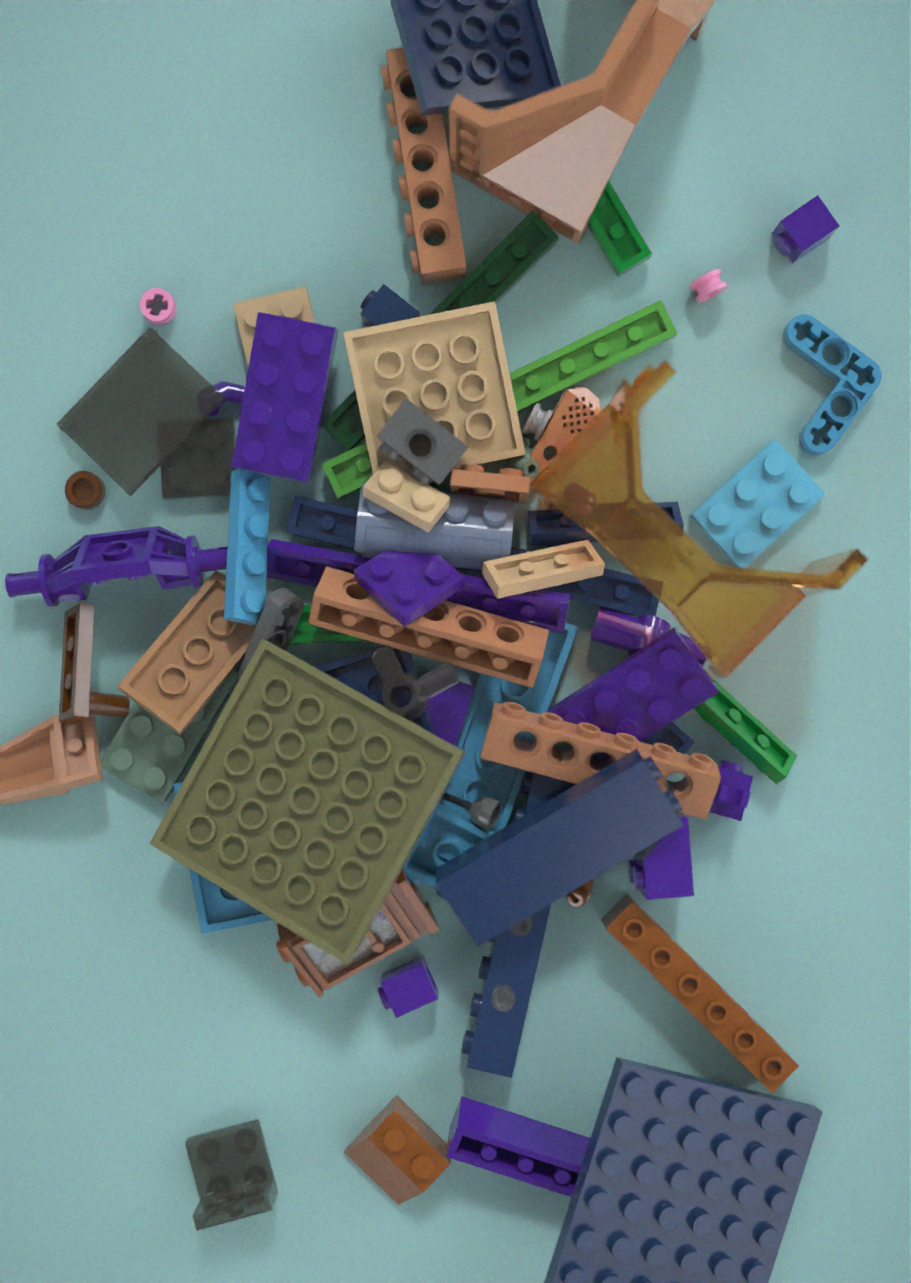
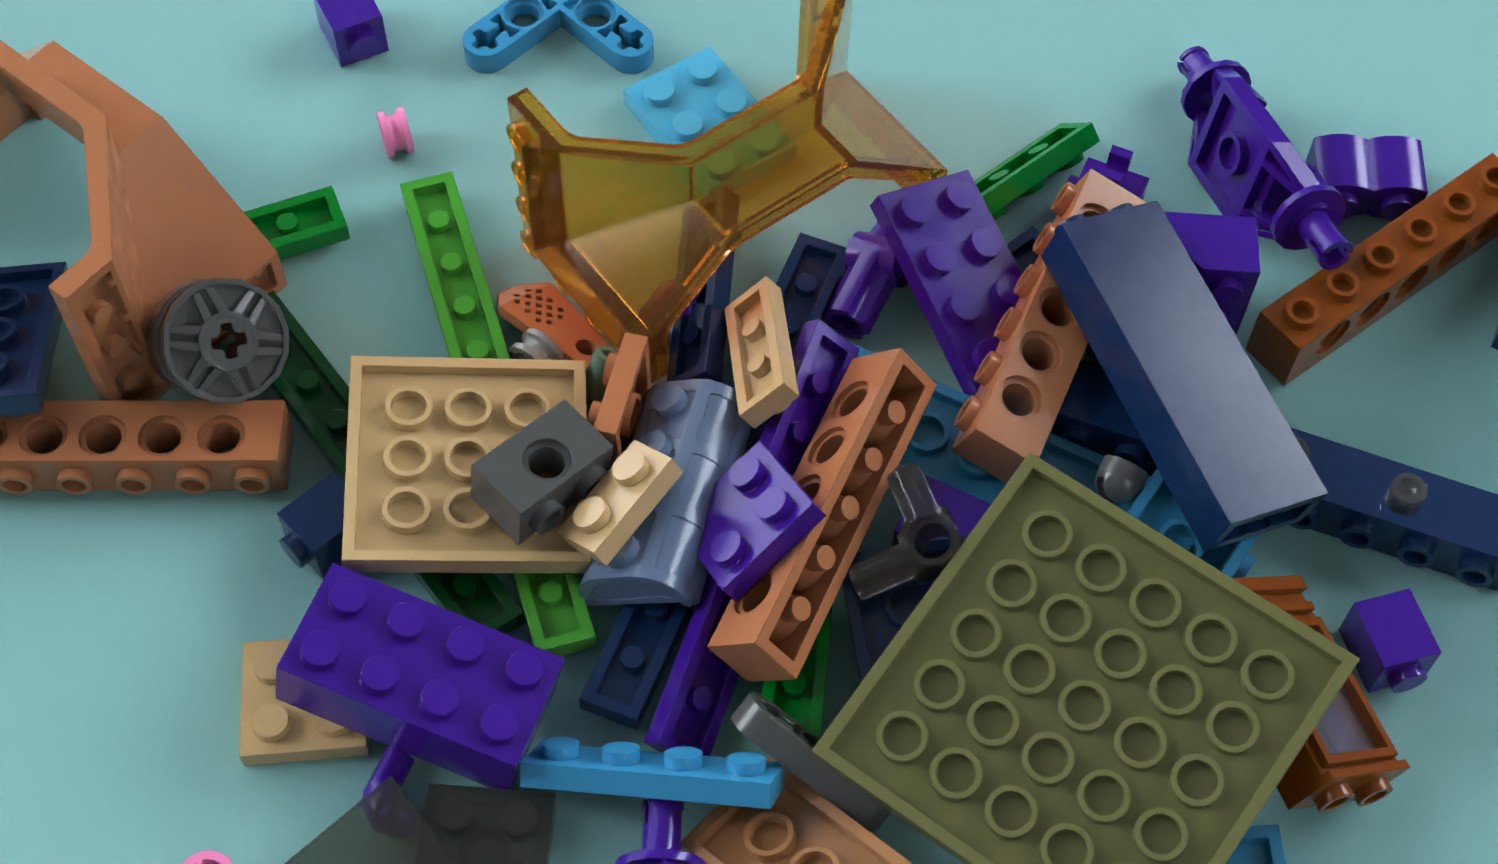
camera: 90 degrees left, 30 degrees down
(505, 210) = (192, 315): none -> dark grey wheel
(764, 888) = (1253, 165): none -> dark purple plate
(778, 976) = (1374, 174): none -> dark purple brick

